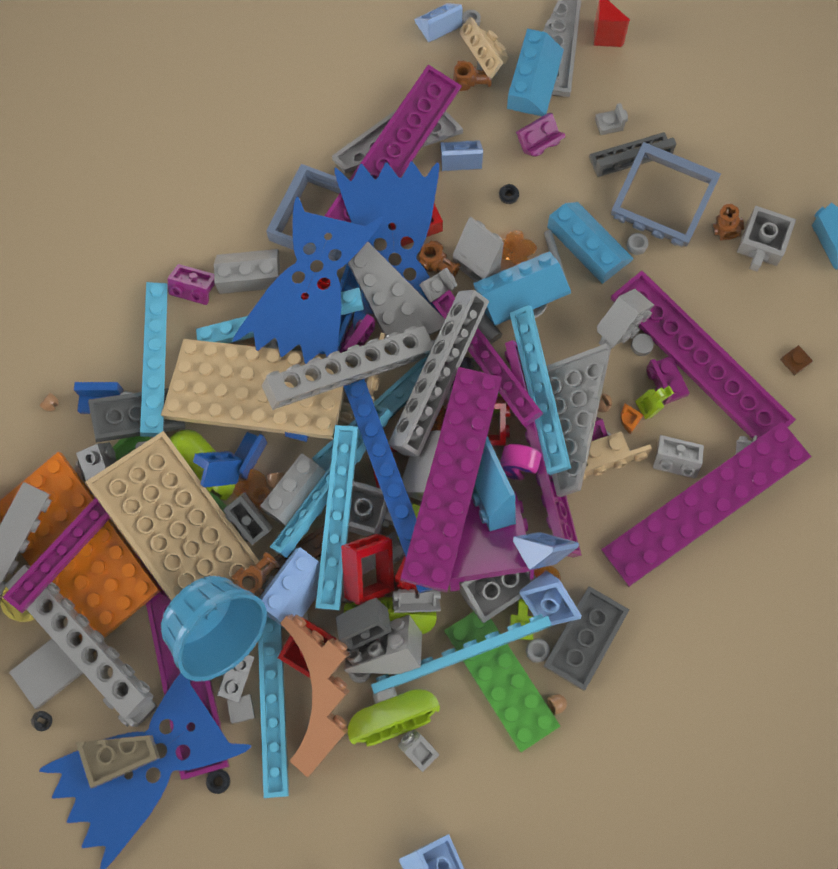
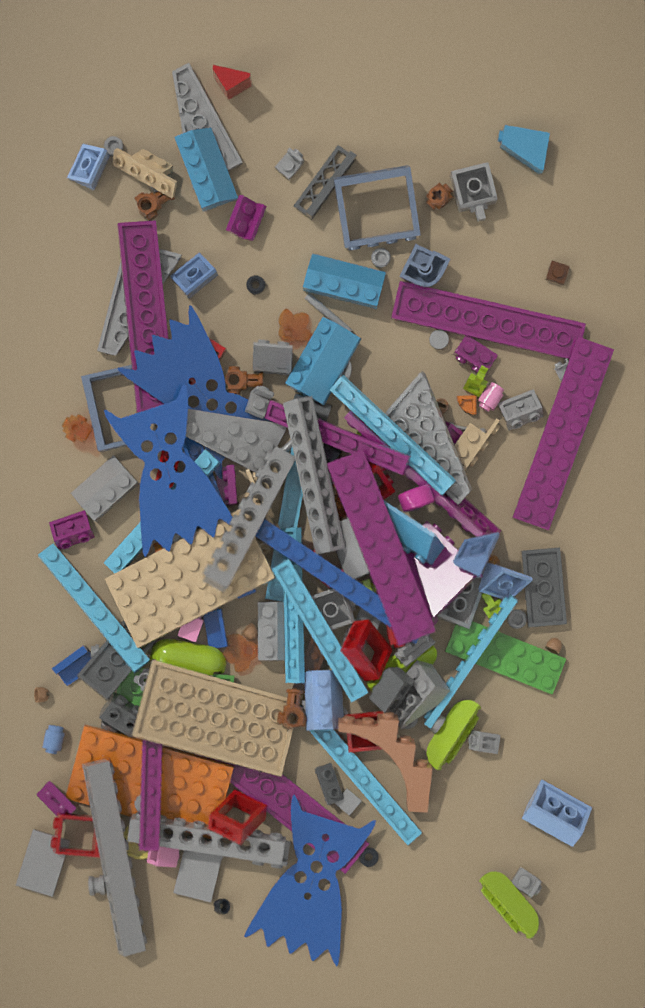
camera: 40 degrees left, 15 degrees up
(25, 448) = (53, 739): none -> medium blue brick
(27, 628) = (164, 857): none -> bright pink brick
(103, 643) = (237, 831): none -> red window
(115, 757) = (291, 892): dark tan wing -> none
(212, 627) = (296, 766): dark azure piece -> none
(219, 468) = (207, 653): blue panel -> none
(225, 437) = (191, 630): none -> bright pink brick
(247, 518) = (255, 674): dark grey brick -> none
(263, 204) = (83, 431): none -> clear orange brick
(624, 318) = (416, 334): light grey hinge -> none
(657, 424) = (491, 397): none -> bright pink brick
(673, 271) = (424, 267): none -> sand blue brick

